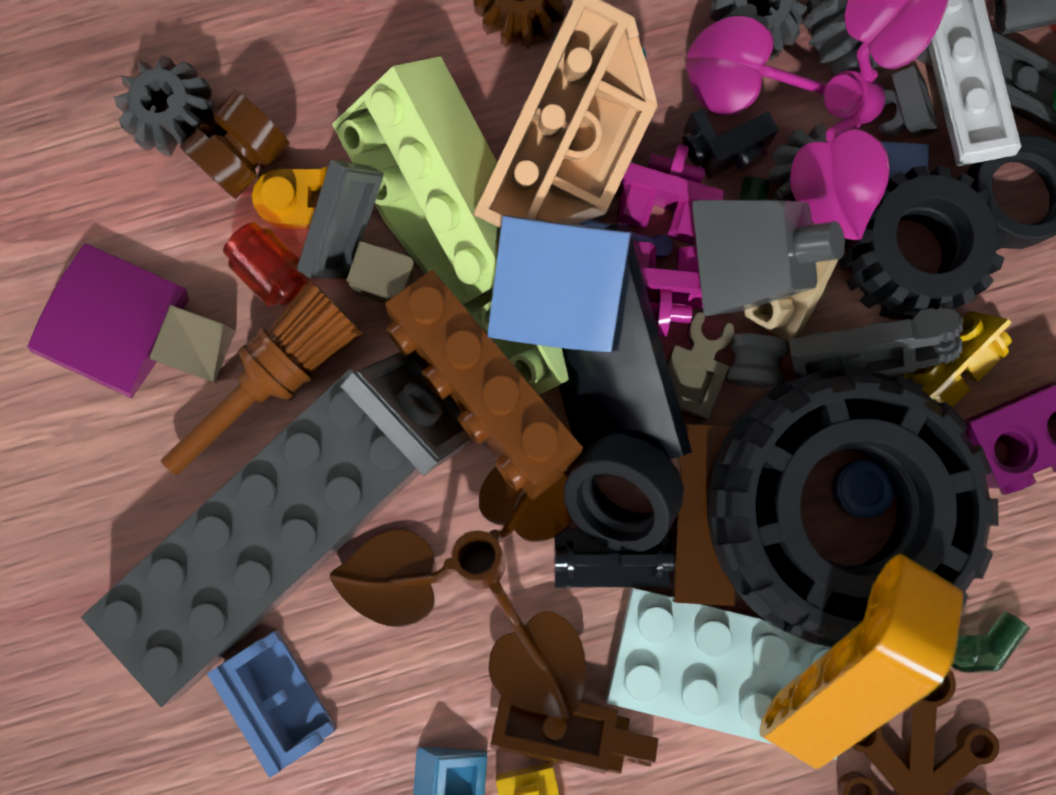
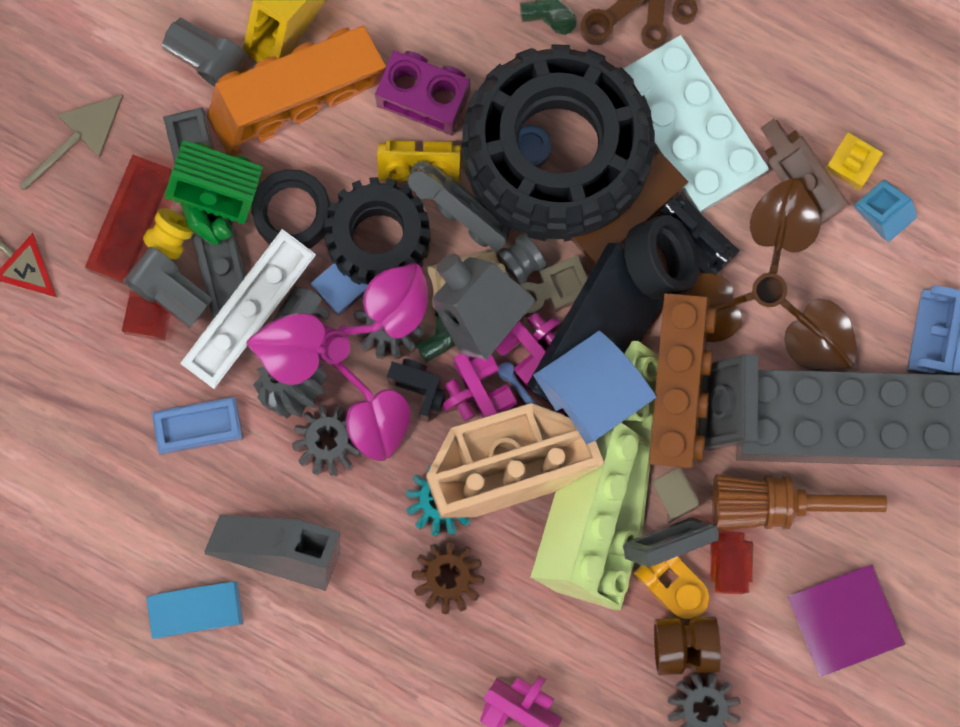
camera: 135 degrees left, 5 degrees down
(192, 343) = (811, 561): dark tan slope -> none
(873, 670) = (634, 58): light orange beam -> none

